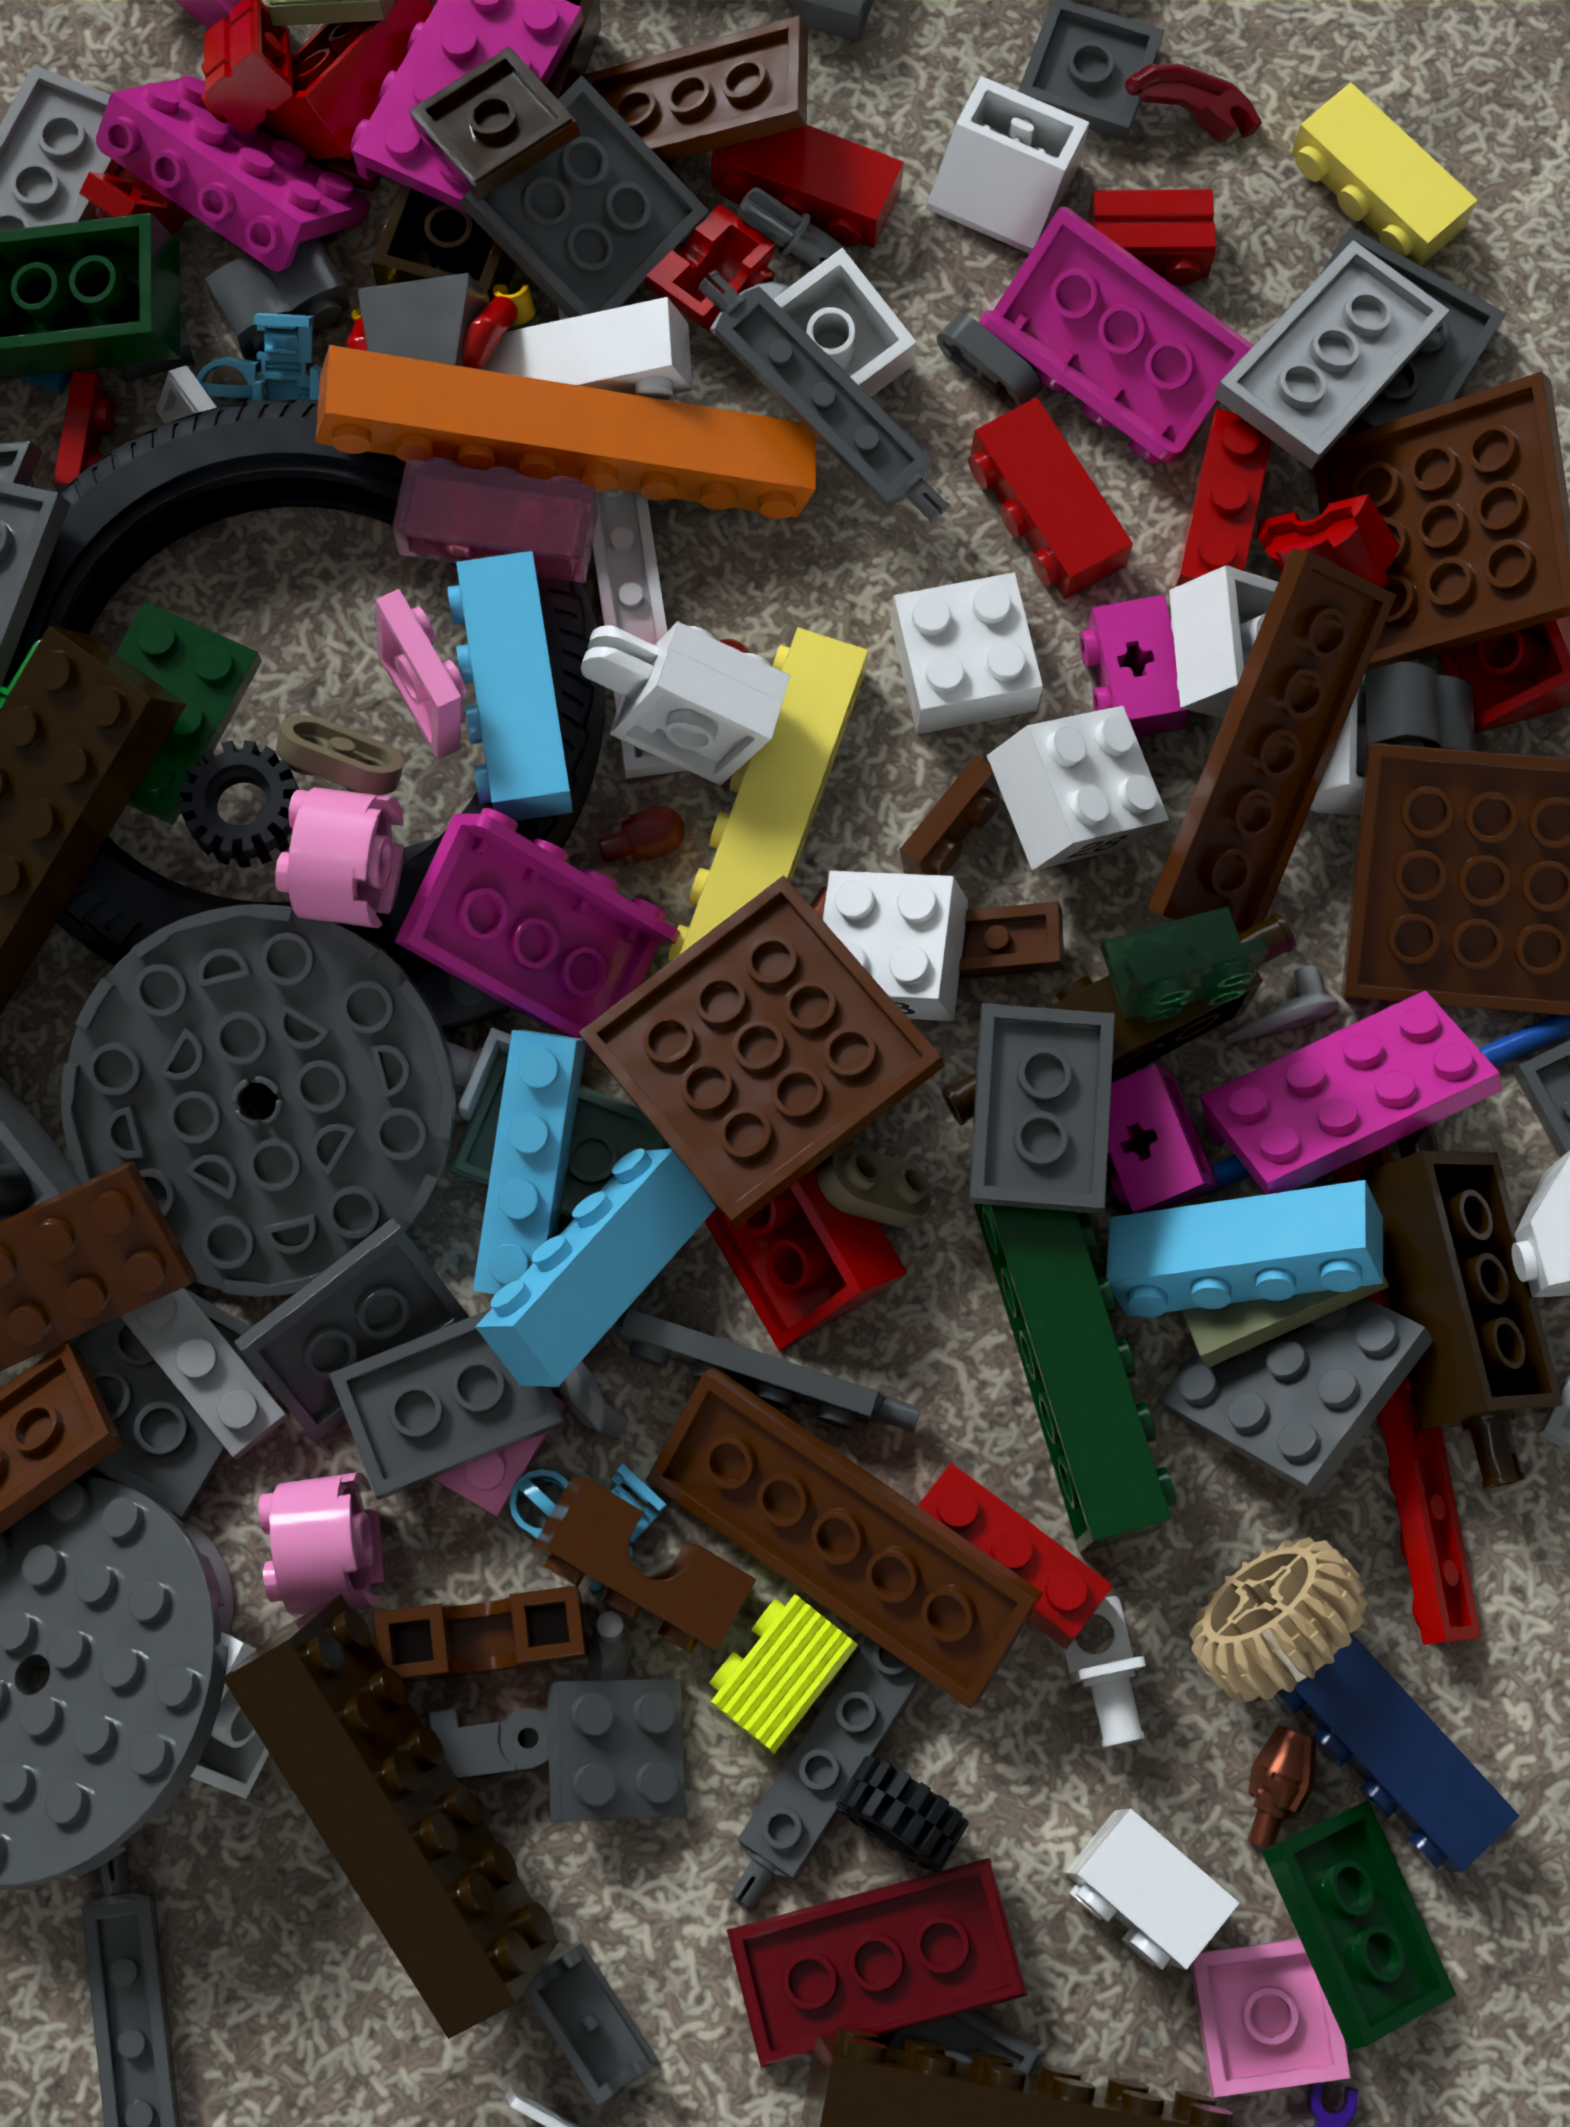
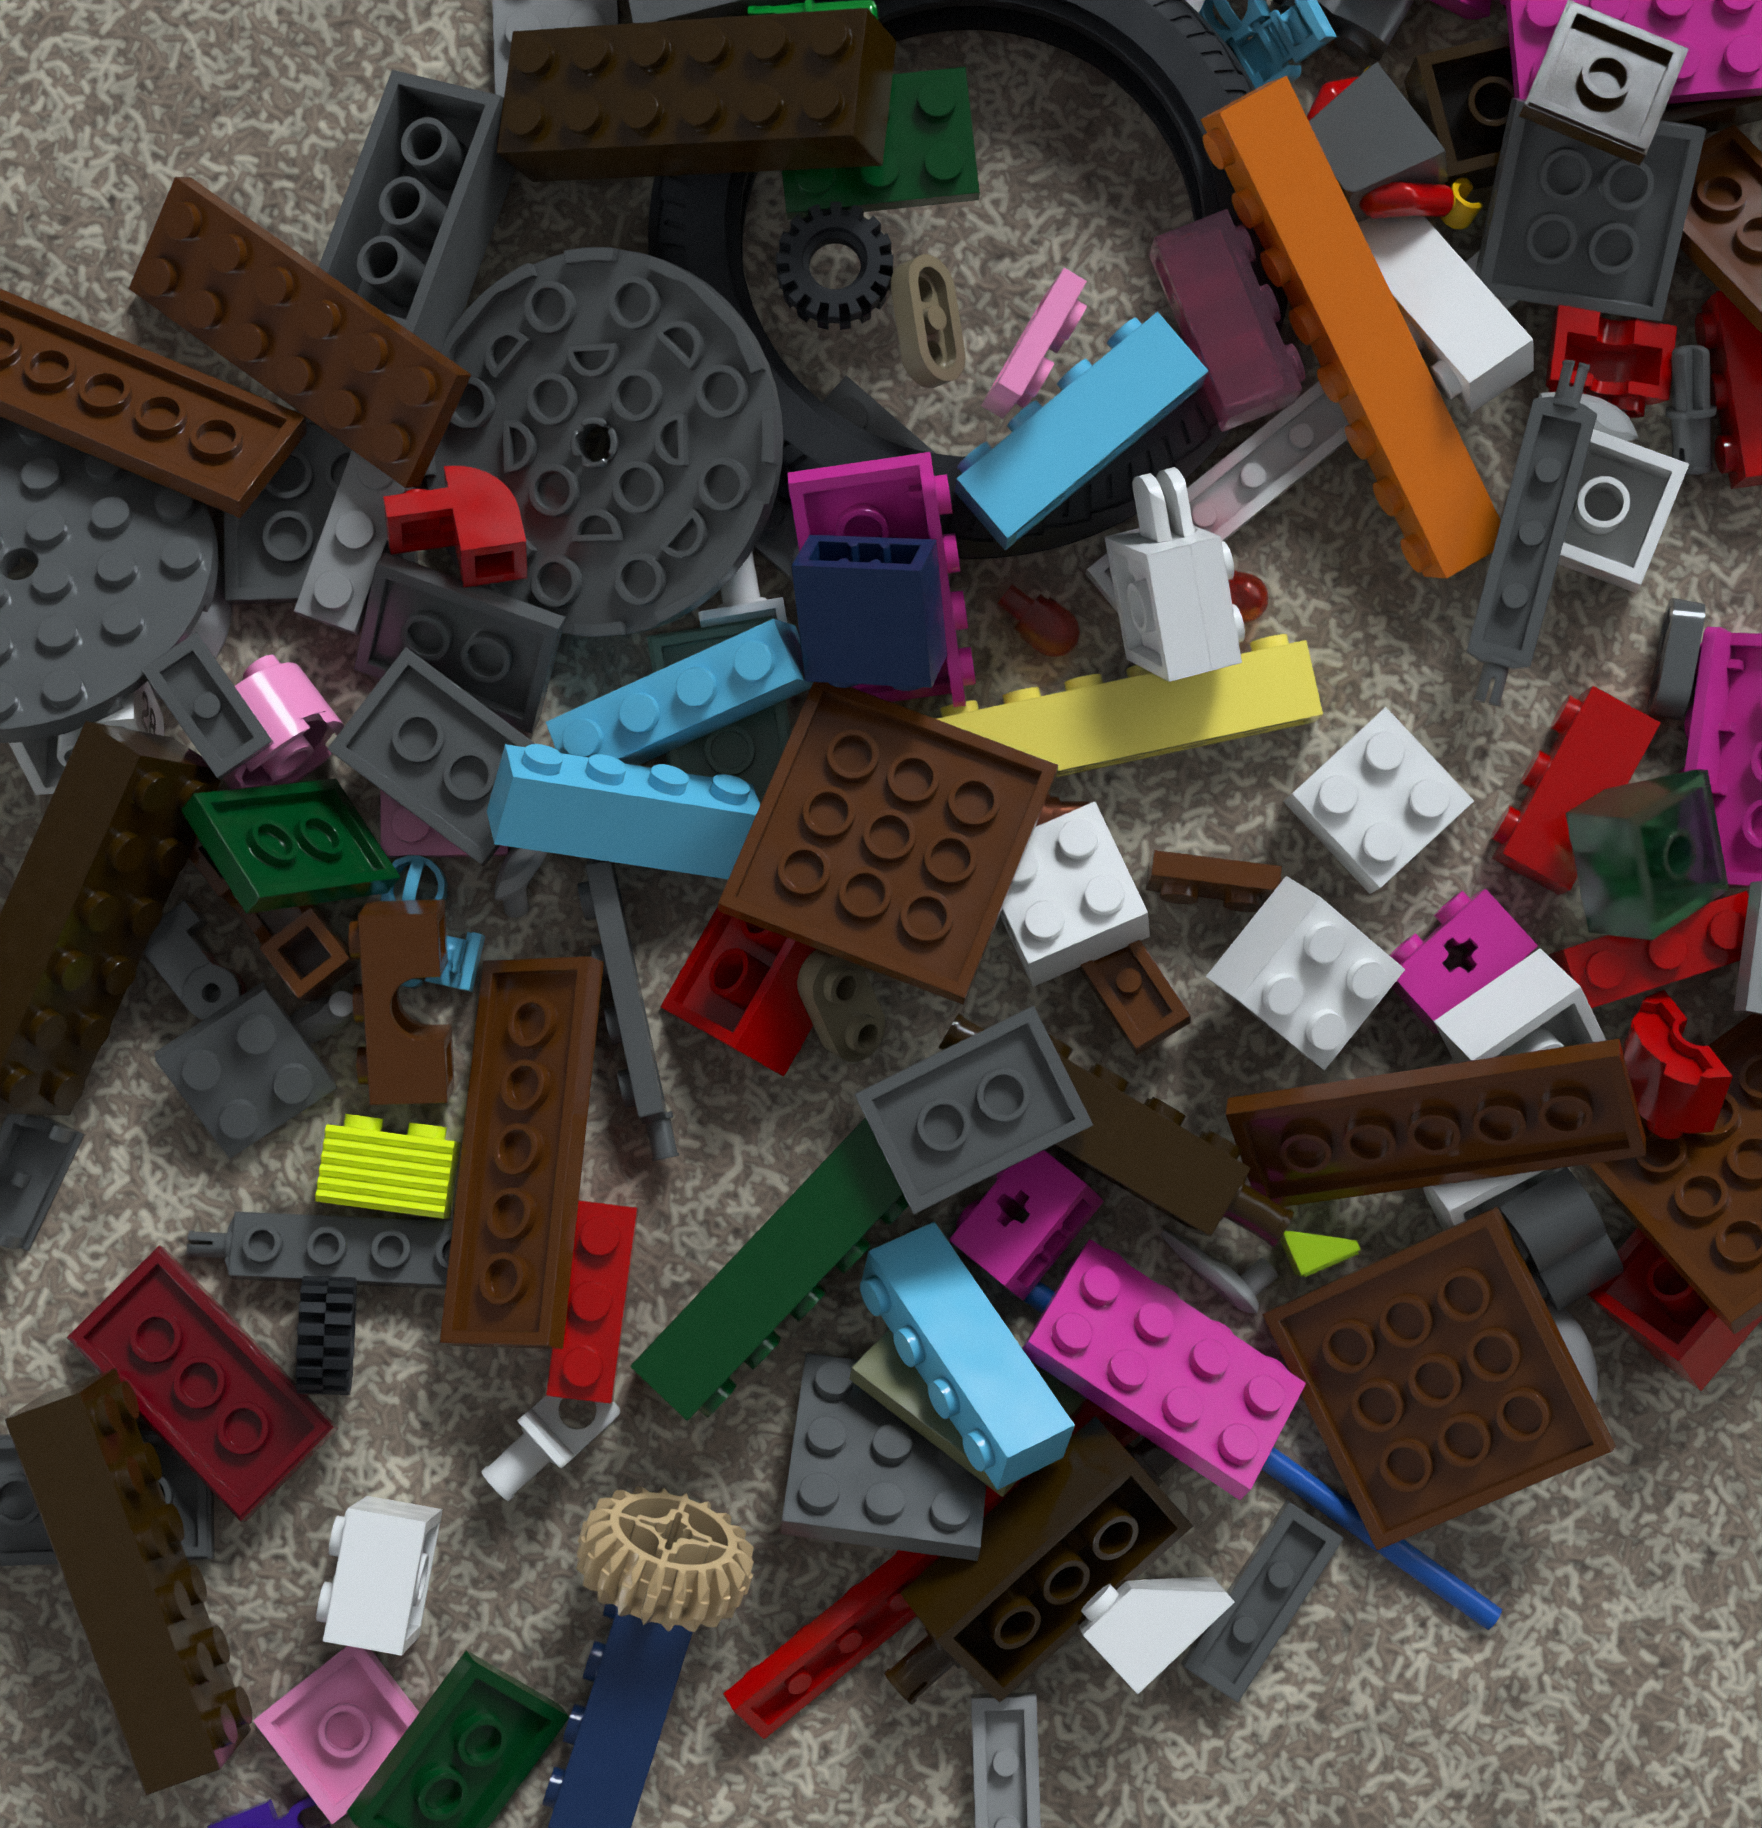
camera: 60 degrees right, 10 degrees up
(252, 1242) = (470, 513): none -> red brick
(275, 1567) = (207, 706): none -> dark grey hinge
(341, 856) = (832, 381): bright pink brick -> none
(442, 1576) = (290, 844): none -> dark green plate
(557, 944) = (870, 611): none -> dark blue brick
(1141, 464) = (1647, 854): none -> clear green slope
(1180, 964) = (1177, 1154): clear green bracket -> none
(1280, 1782) = (542, 1635): copper piece -> none
(1316, 924) = (1315, 1252): none -> lime slope

